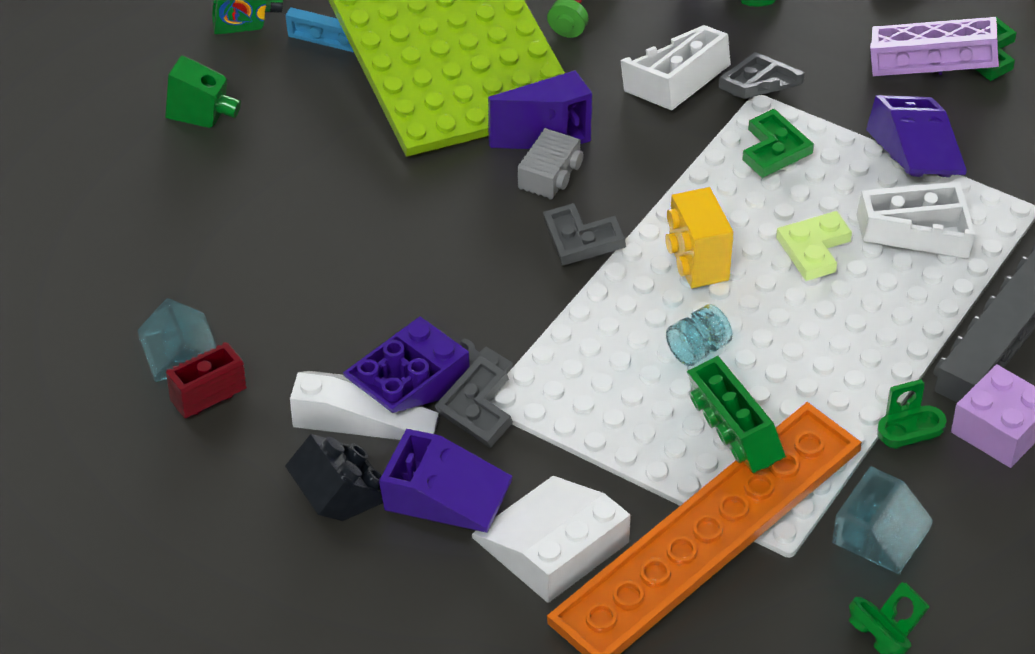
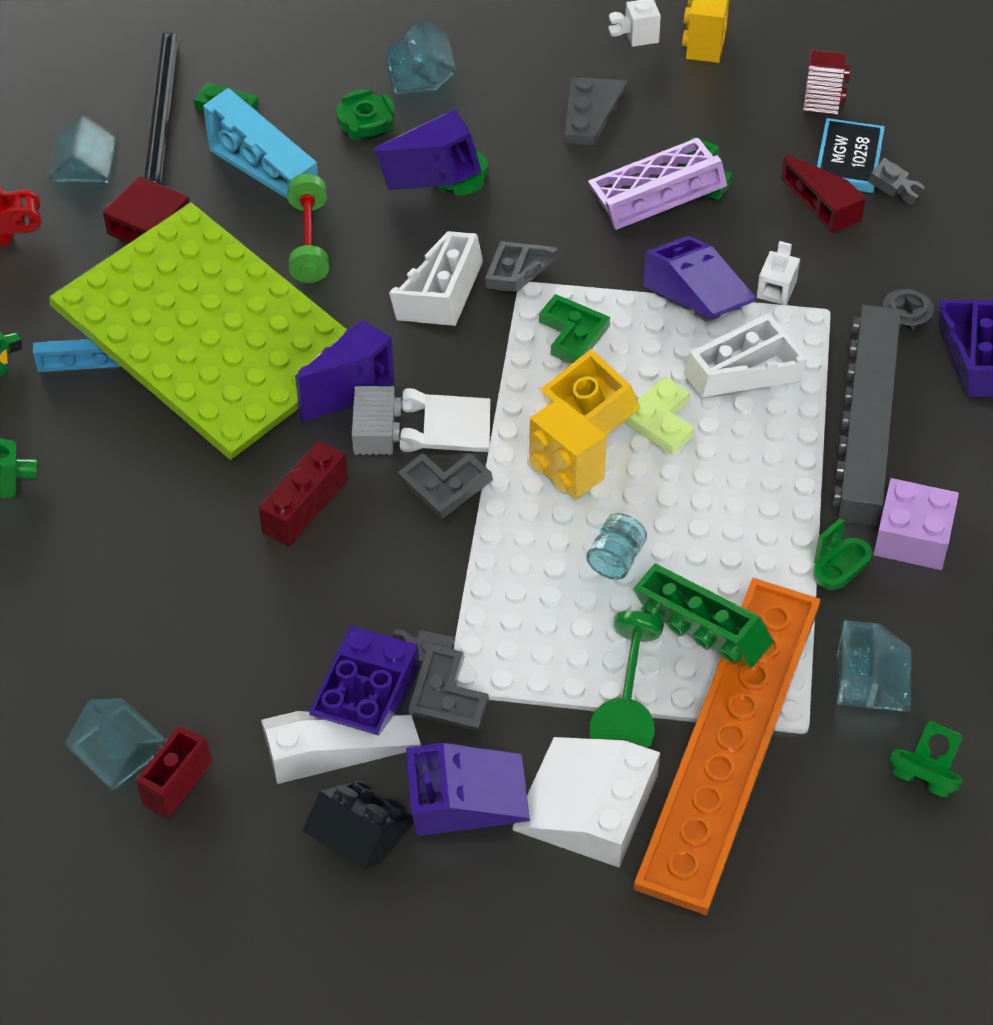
camera: 25 degrees left, 5 degrees up
(450, 201) = (303, 493): none -> dark red brick
(616, 188) = (448, 422): none -> white flag
(626, 481) = (622, 716): none -> green piece
(751, 201) = (594, 392): none -> yellow brick
(1004, 160) = (778, 275): none -> white brick

